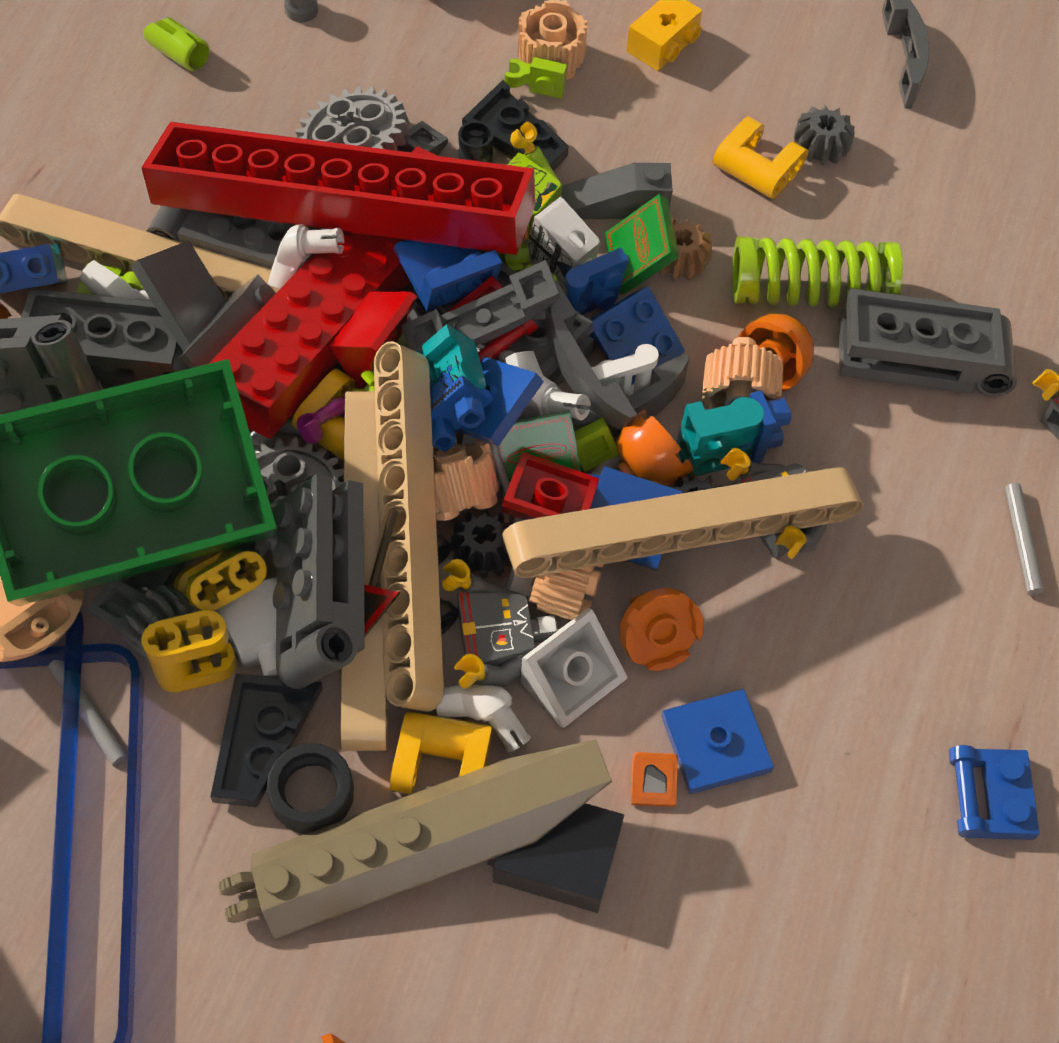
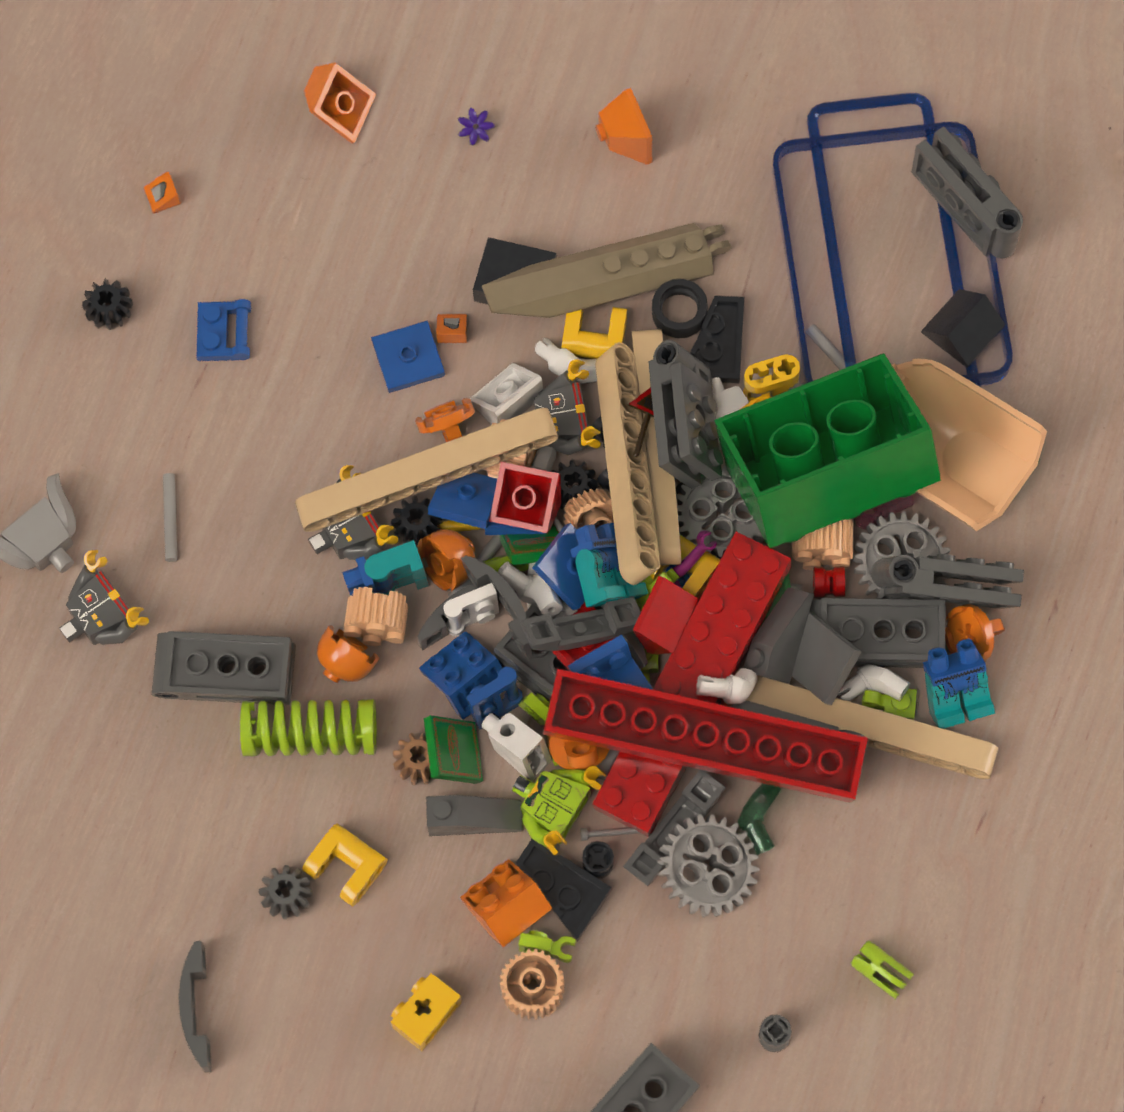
camera: 175 degrees left, 10 degrees up
(582, 113) = (506, 902): none -> orange slope

